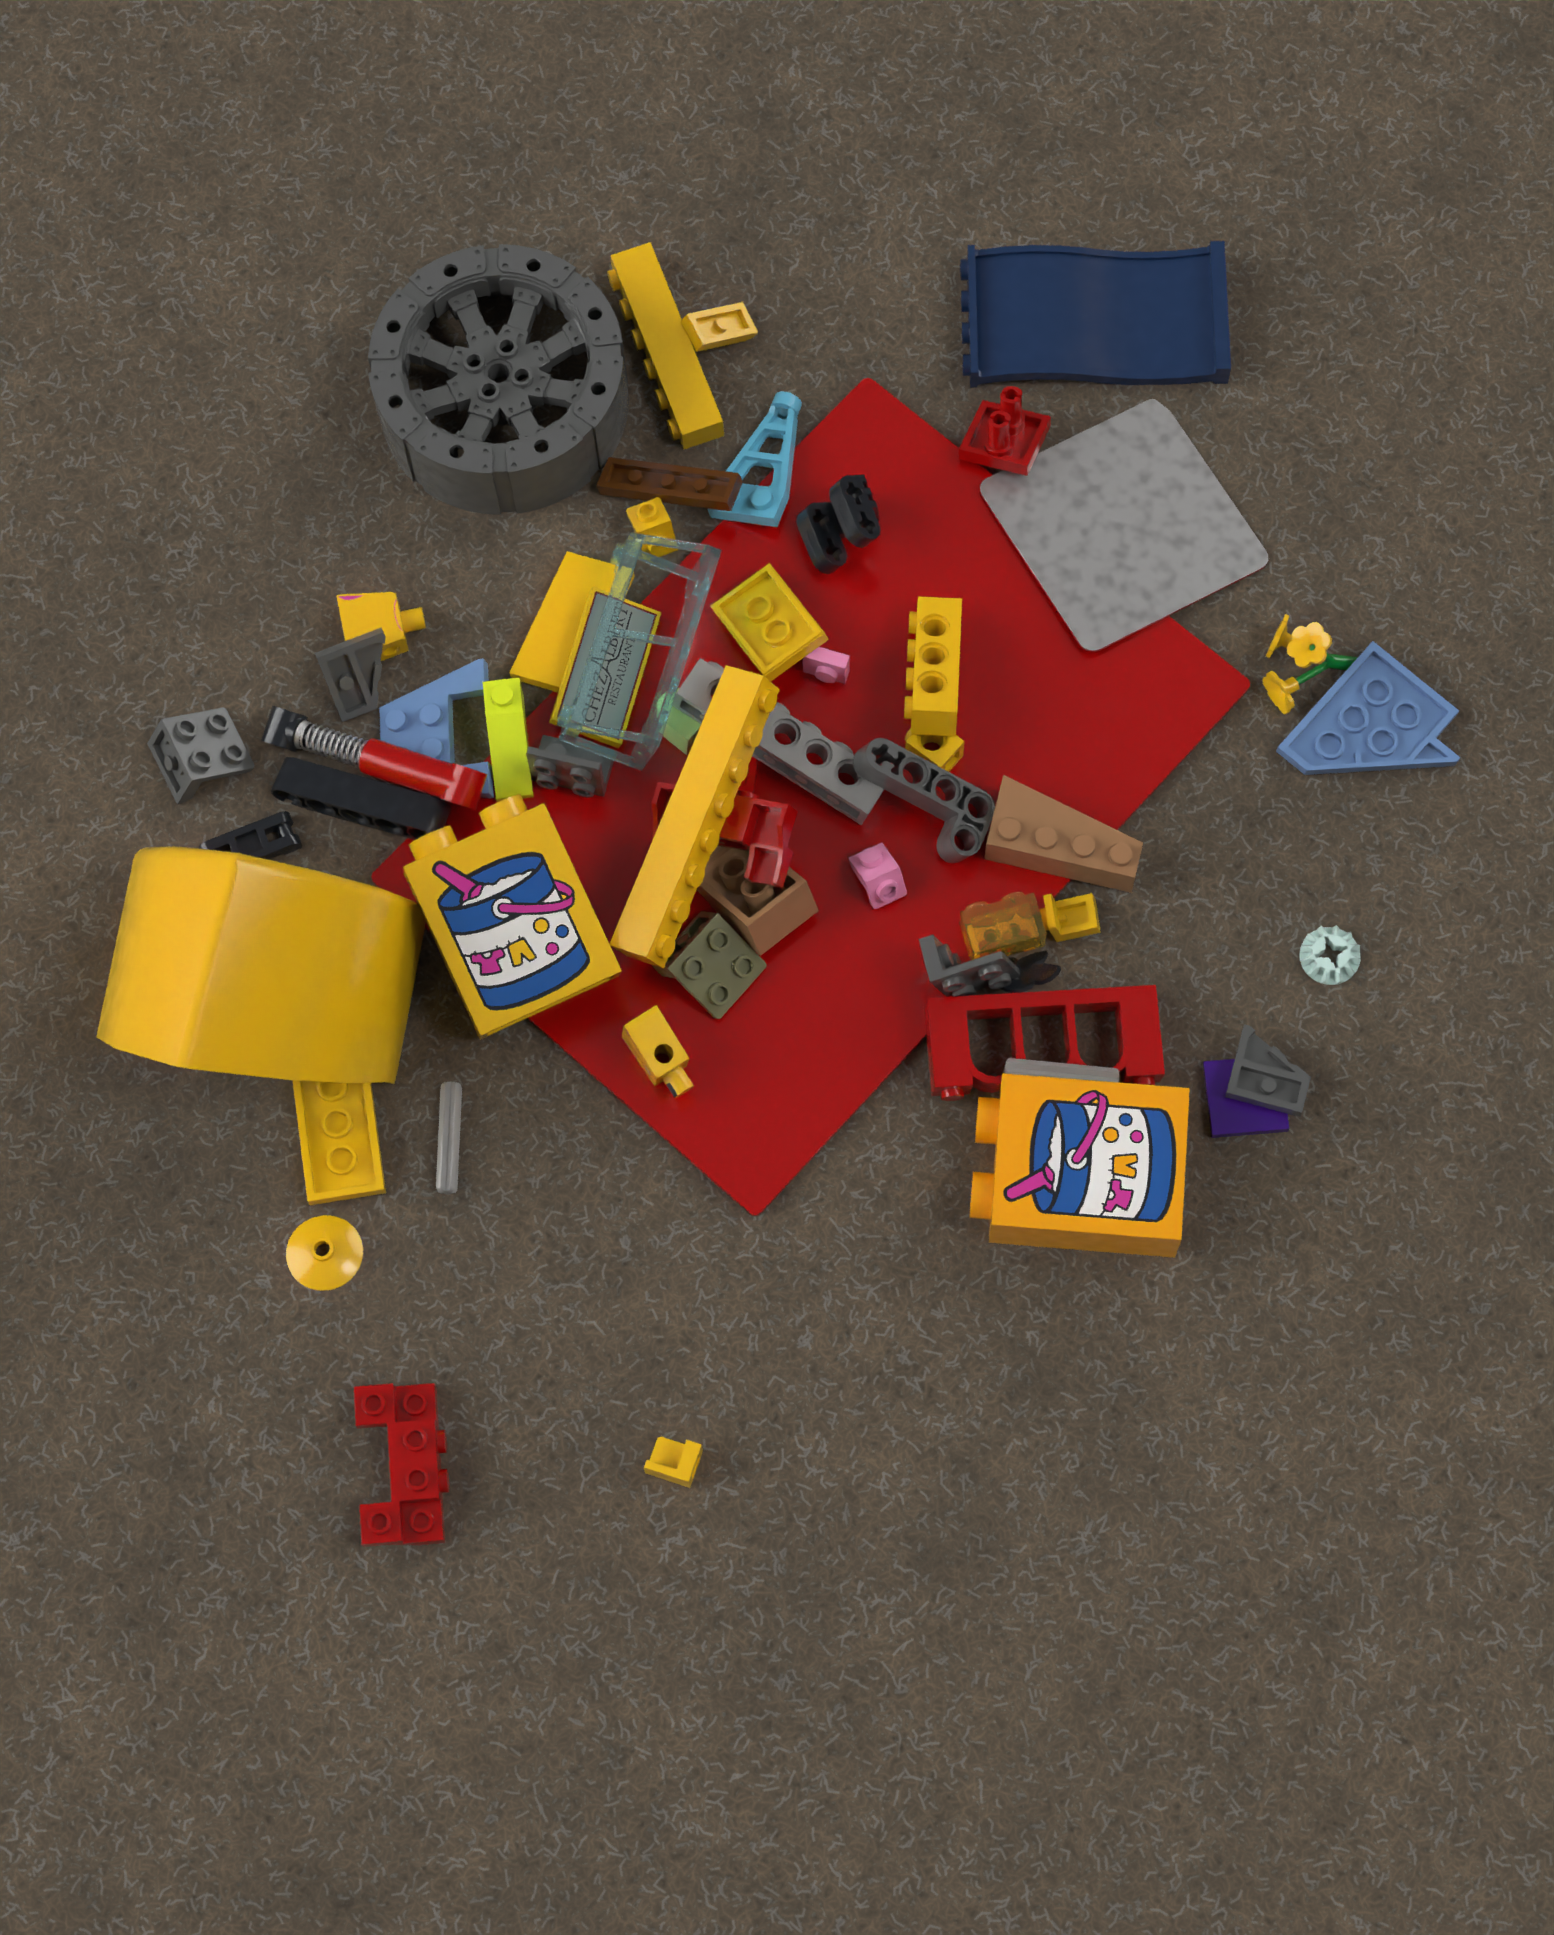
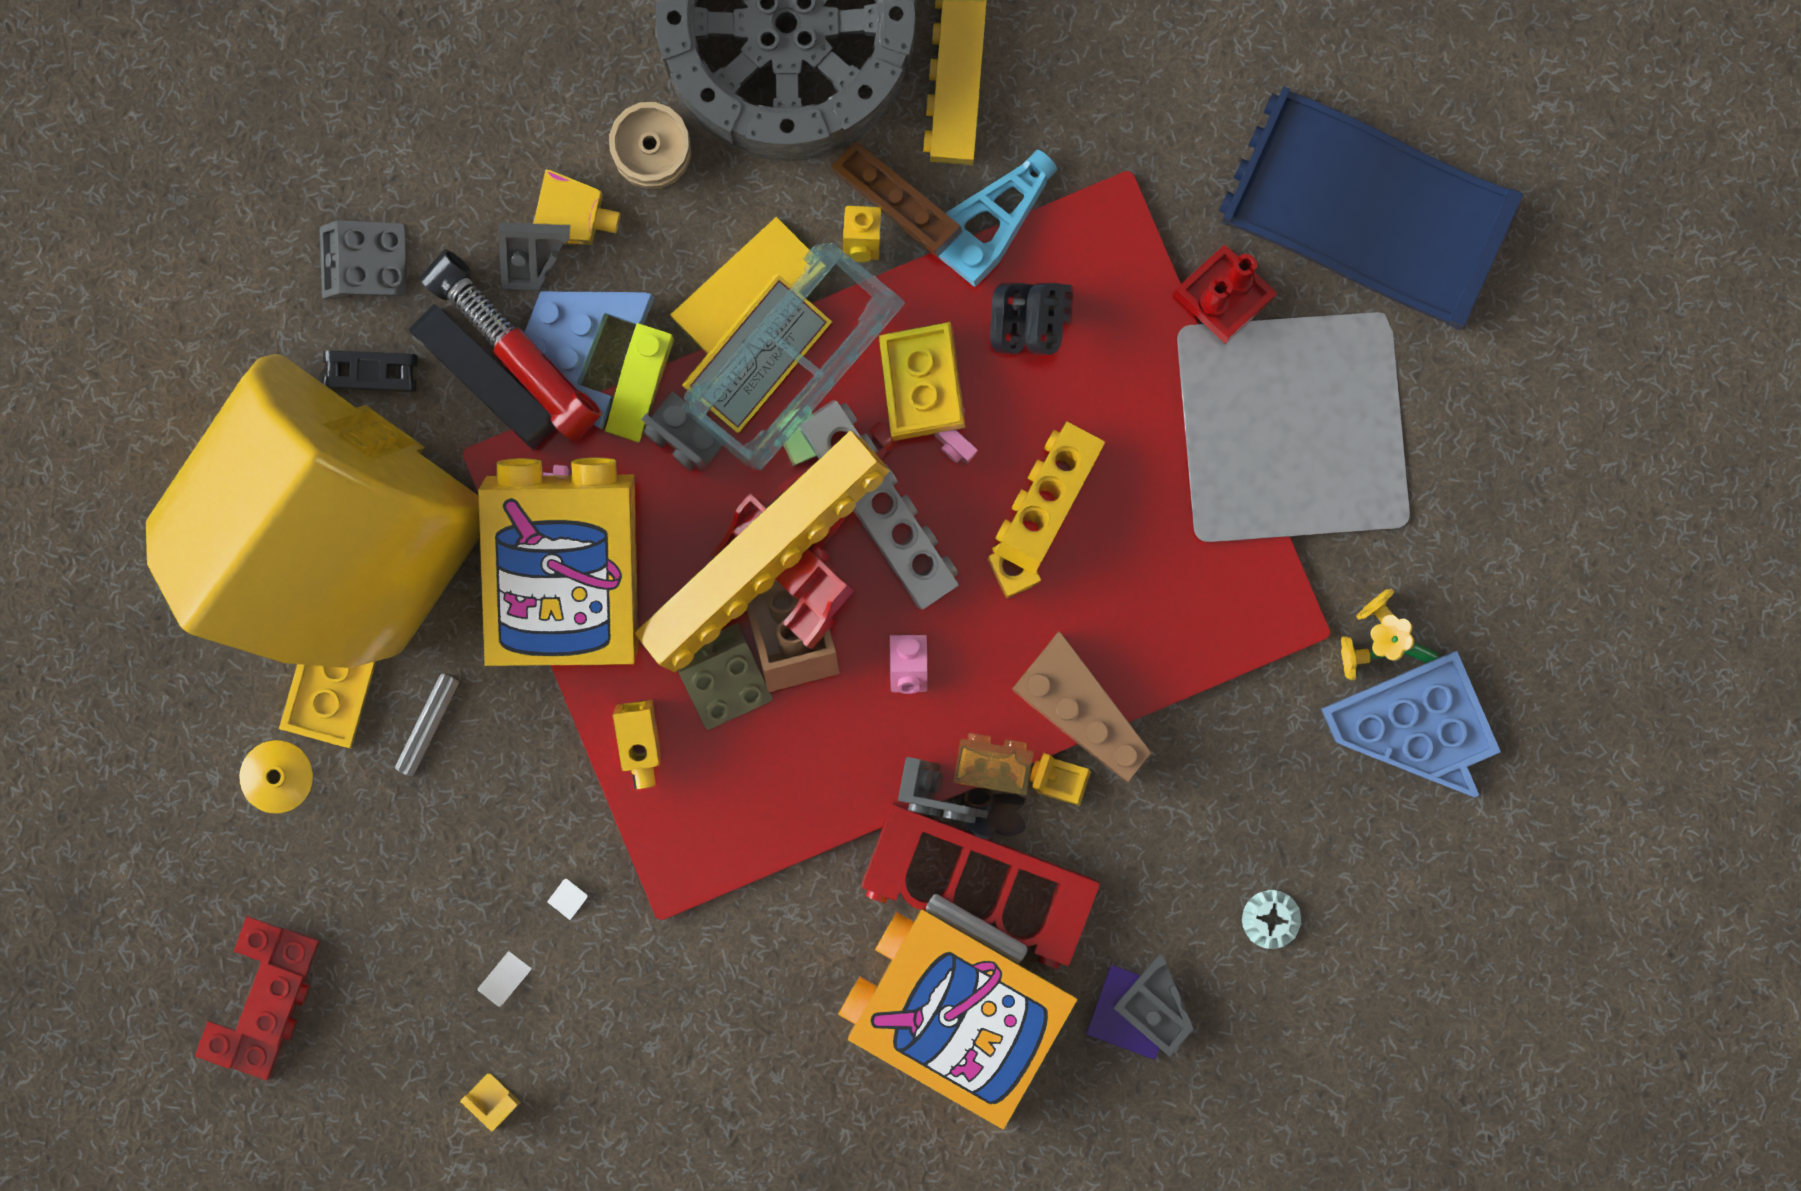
camera: 20 degrees right, 15 degrees up
(423, 536) = (658, 125): none -> tan wheel
(636, 1330) = (510, 969): none -> white sticker
(719, 326) = (1016, 59): yellow plate -> none
(923, 794) = (981, 611): dark grey beam -> none

